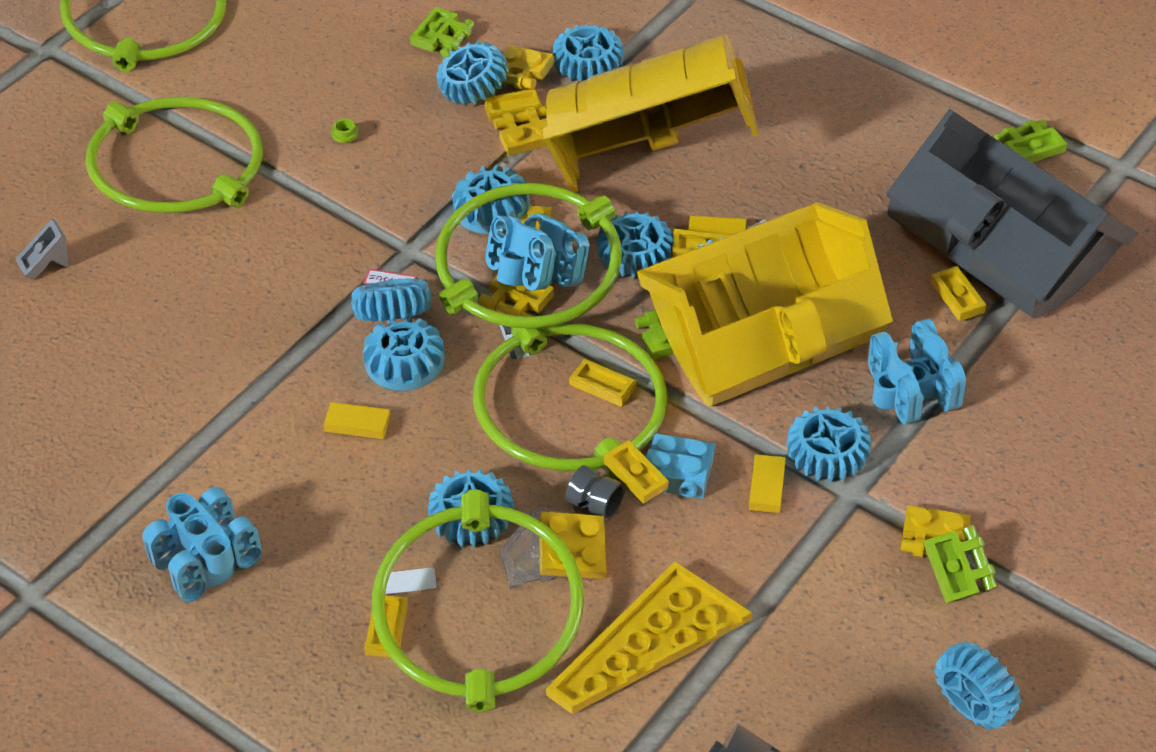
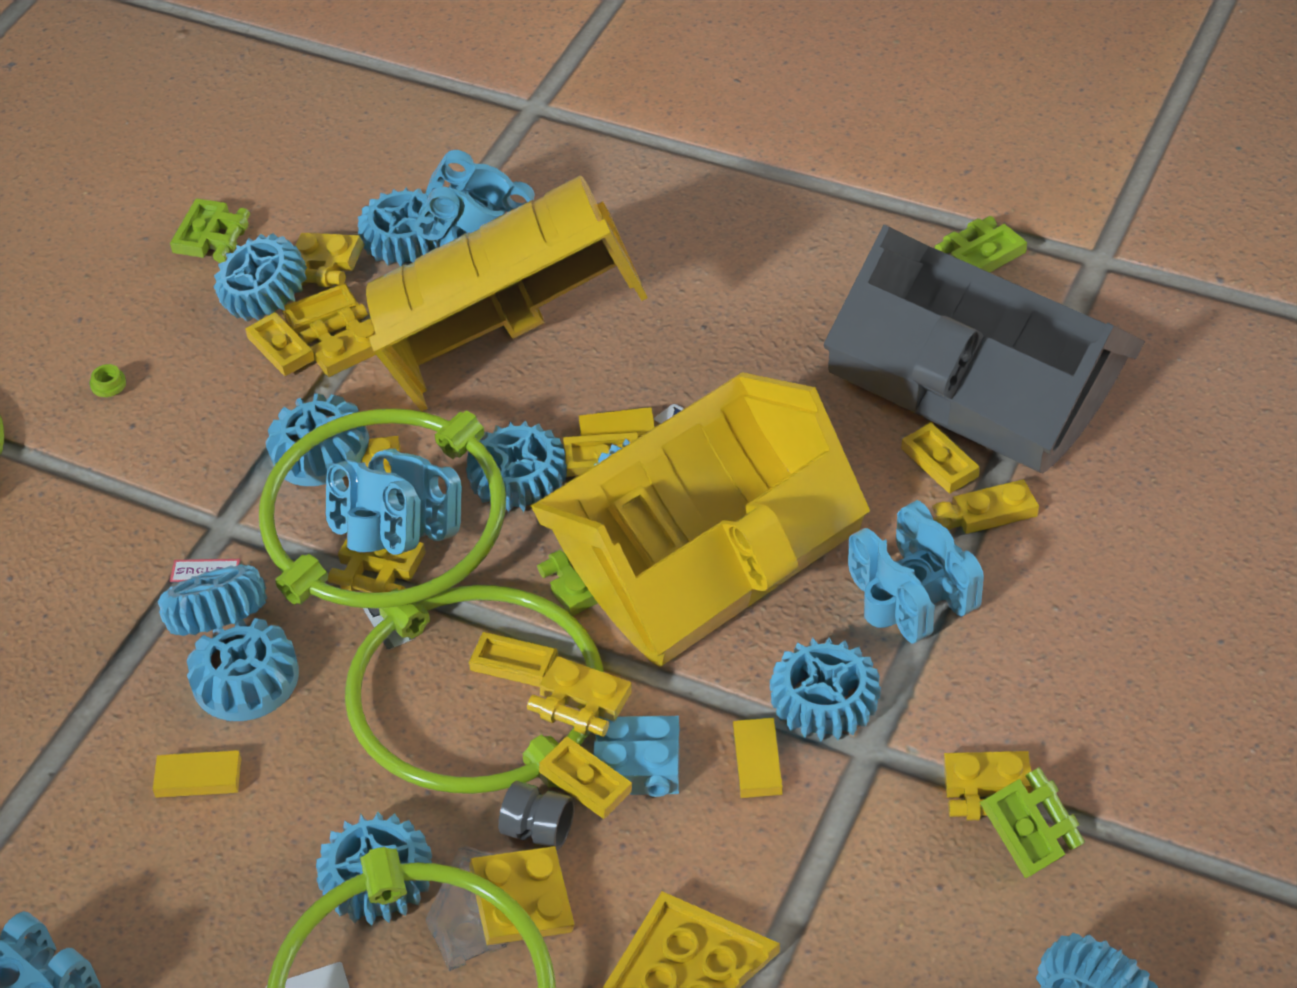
camera: 10 degrees left, 0 degrees up
(477, 125) = (280, 344): none -> yellow plate
(640, 40) = (469, 201): none -> medium azure piece
(648, 410) = (582, 688): none -> yellow plate
(985, 336) = (987, 507): none -> yellow plate

